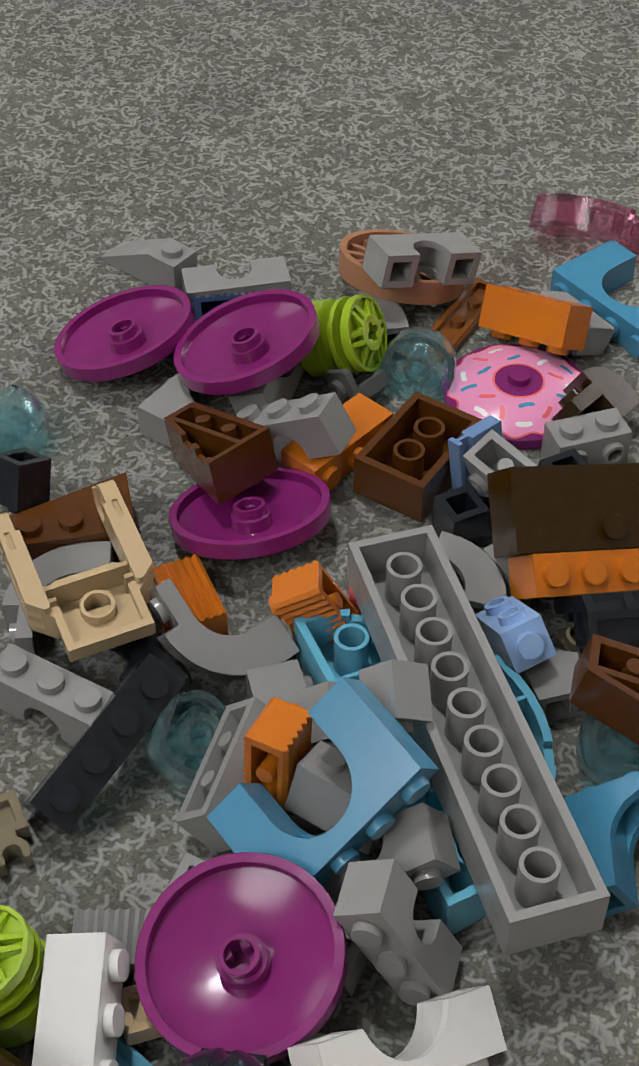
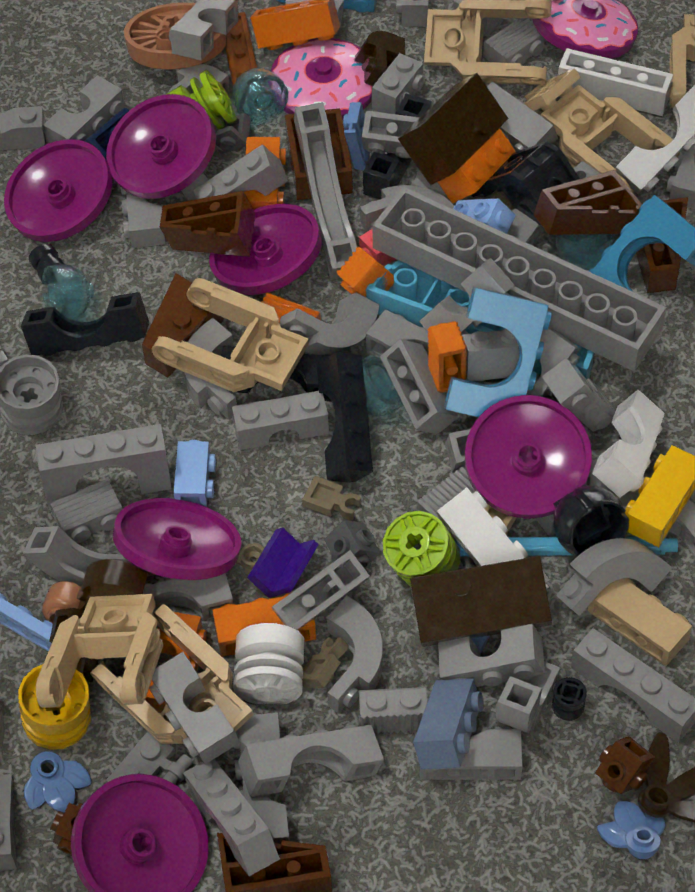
camera: 40 degrees left, 10 degrees up
(44, 385) = (43, 256): none -> black wheel
(393, 438) = (324, 185): none -> light grey arch

